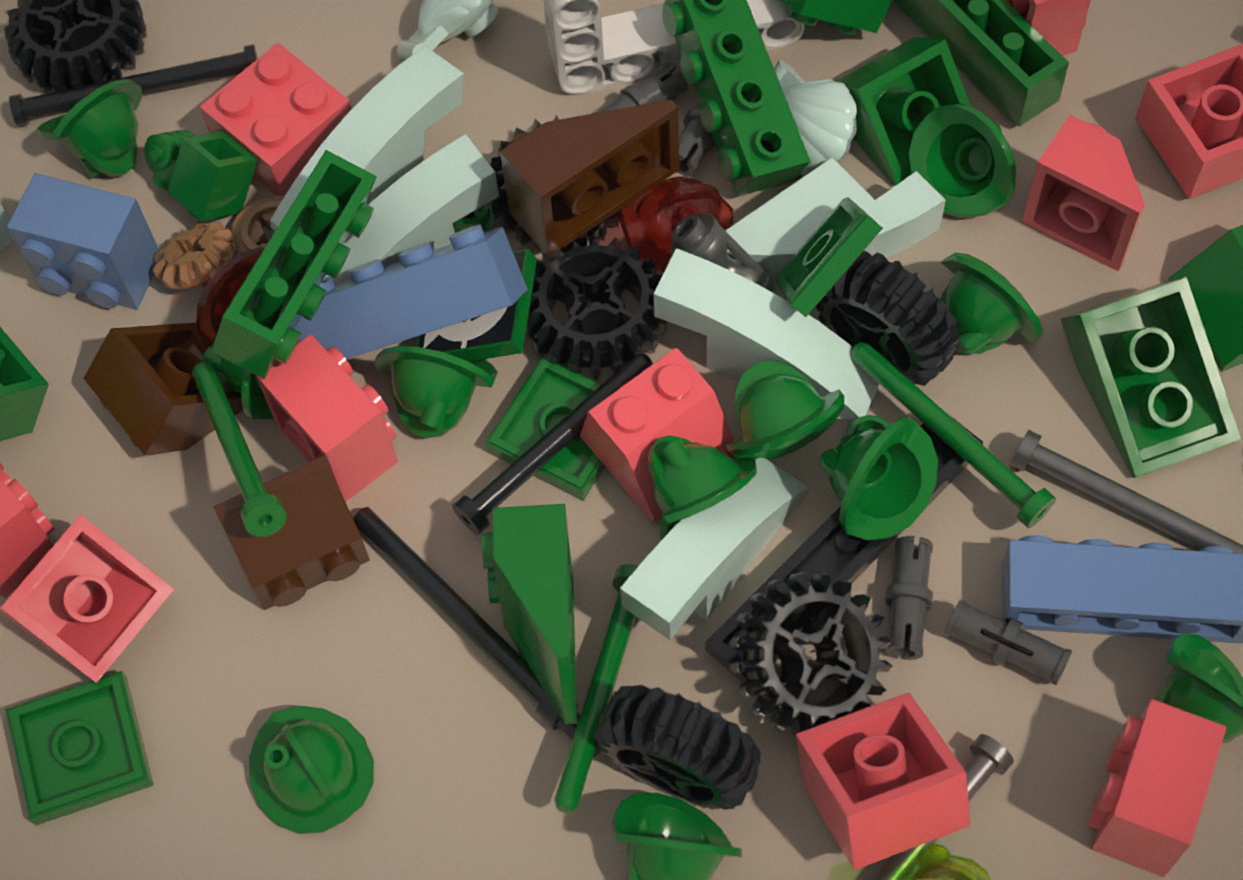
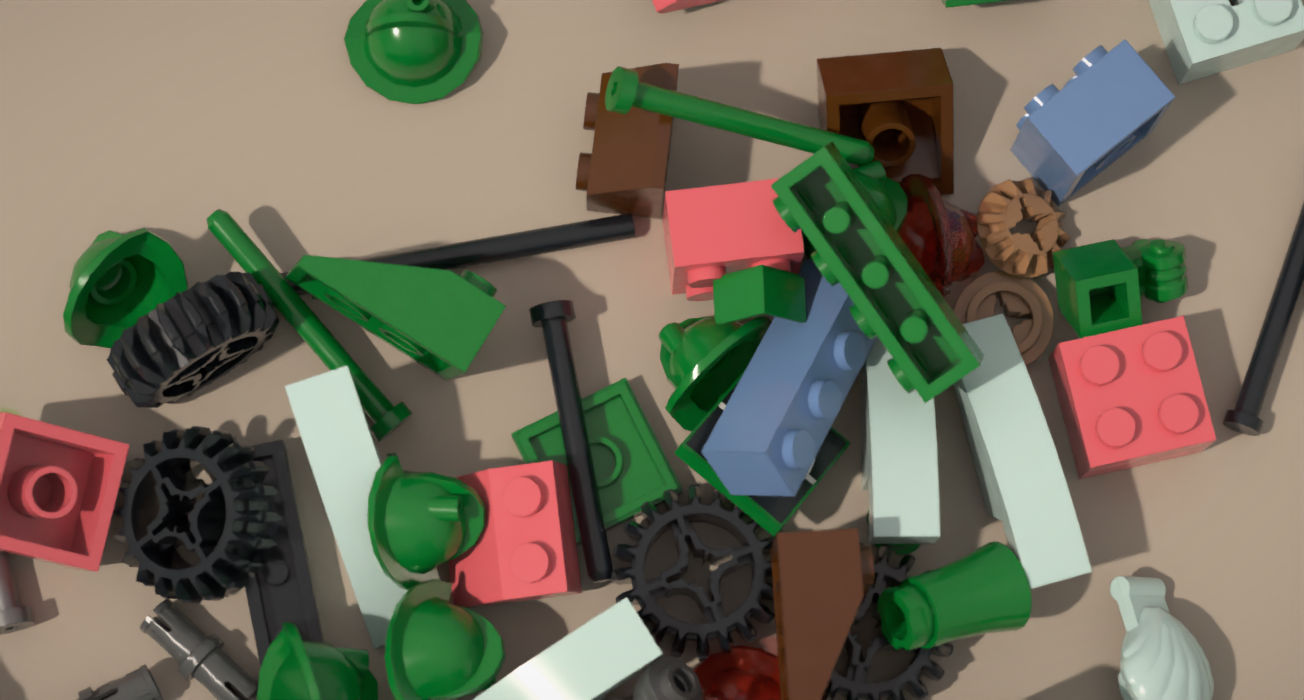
camera: 115 degrees right, 15 degrees up
(101, 129) = (1244, 211): green helmet -> none
(368, 351) = (759, 292): none -> green slope
(492, 109) = (958, 600): none -> green plant

